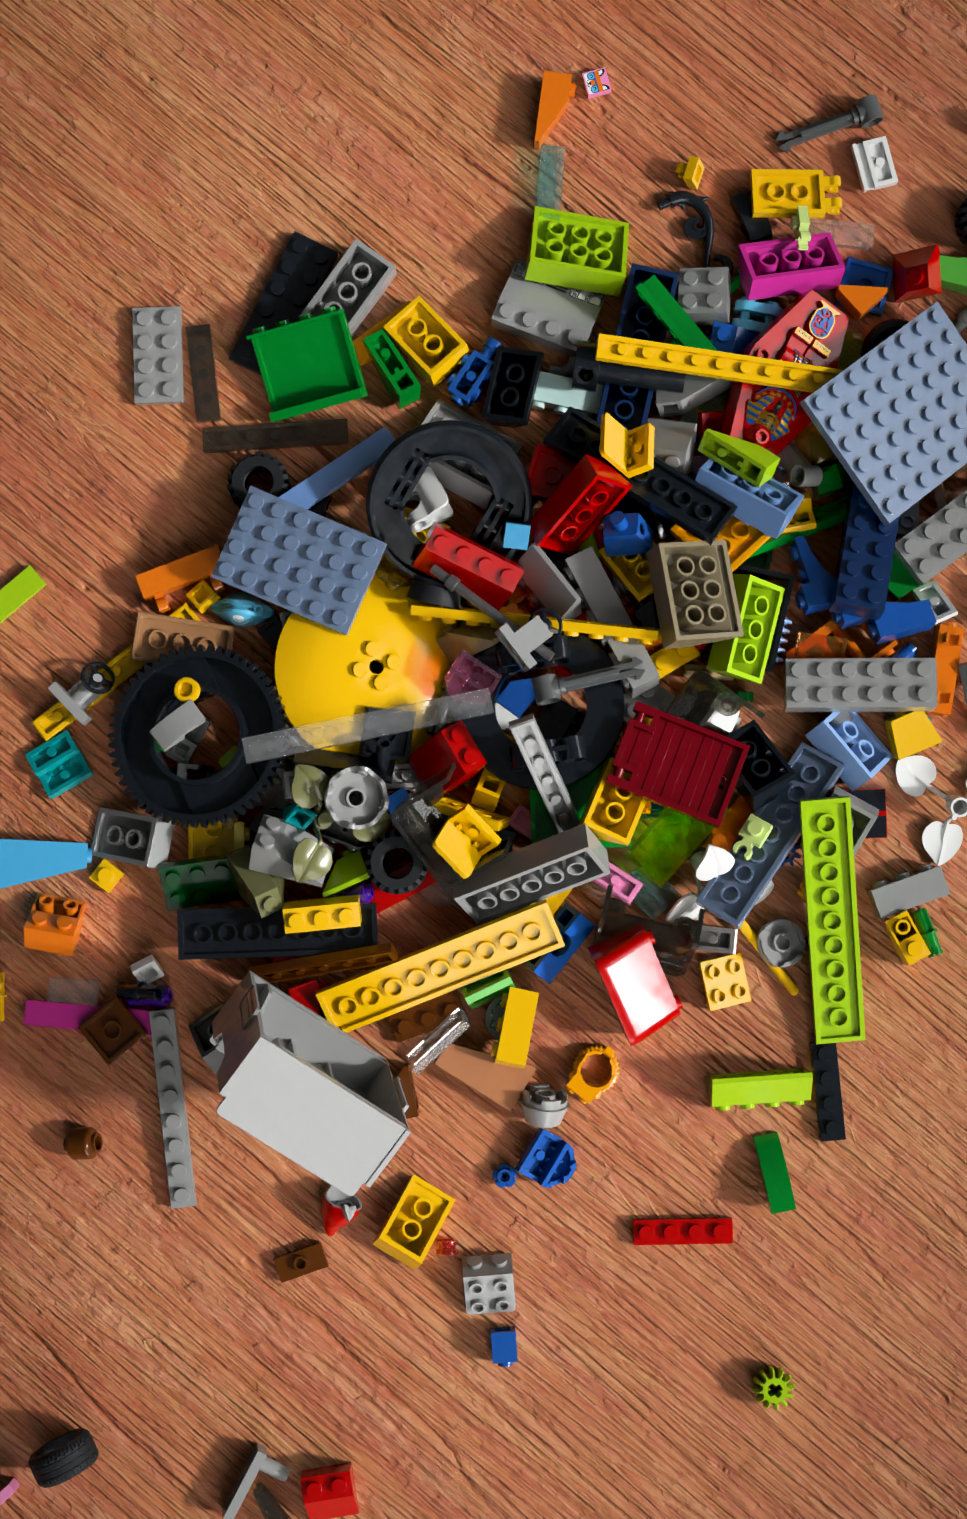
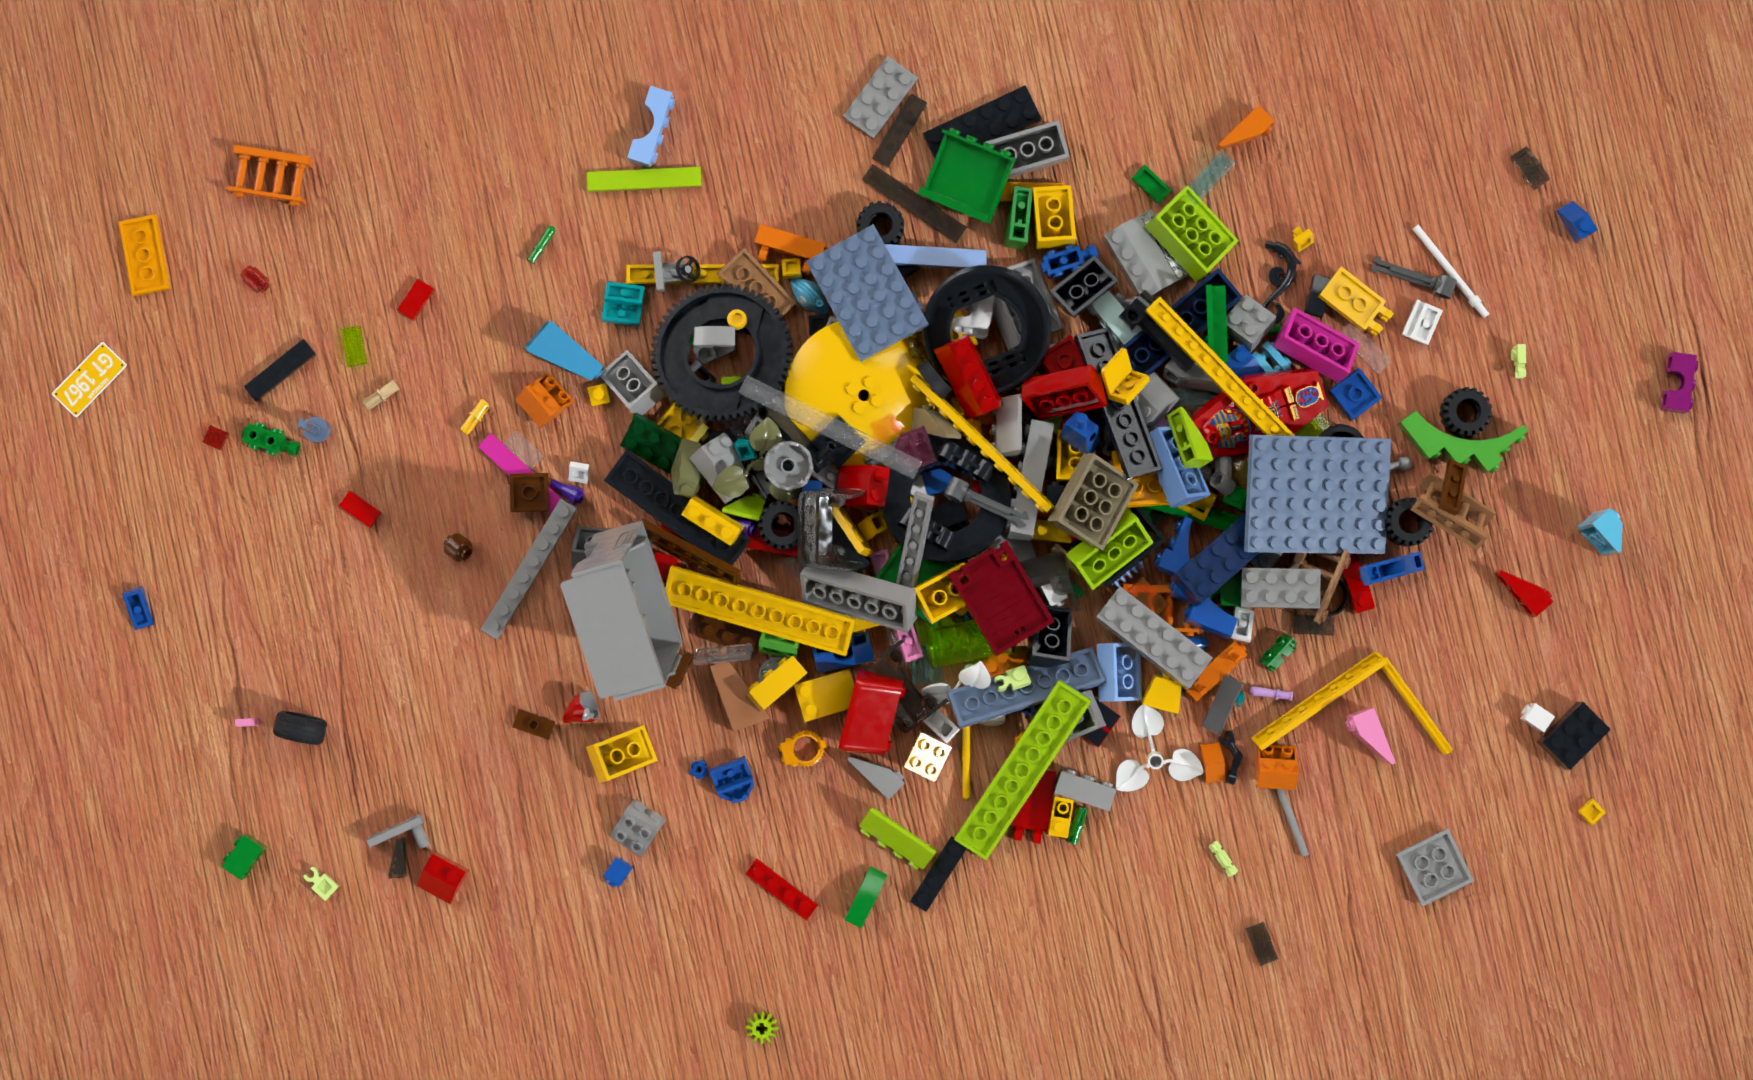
camera: 40 degrees right, 0 degrees up
(140, 991) = (565, 481): black pin -> none
(447, 1246) = (630, 784): clear red bush -> none
(453, 584) = (950, 380): flat silver bar -> none
(465, 840) = (834, 543): yellow bracket -> none
(498, 234) = (1151, 184): none -> green tile
(516, 535) = (1012, 381): dark azure tile -> none
(529, 637) = (970, 449): light grey piece -> none
(544, 1106) = (756, 745): light grey cone -> none
(573, 1000) = (825, 694): none -> yellow slope
(596, 83) = (1287, 137): tile -> none
(697, 1038) = (882, 778): none -> light grey slope
(709, 420) = (1189, 403): red plate -> none
(780, 943) = (980, 760): light grey tile -> none
(800, 226) = (1343, 324): yellowish green plate -> none
(859, 299) = (1344, 400): orange slope -> none
(876, 950) = (1036, 809): none -> red tile
(908, 103) = (1474, 300): none -> white bar
(917, 273) = (1393, 411): red slope -> none

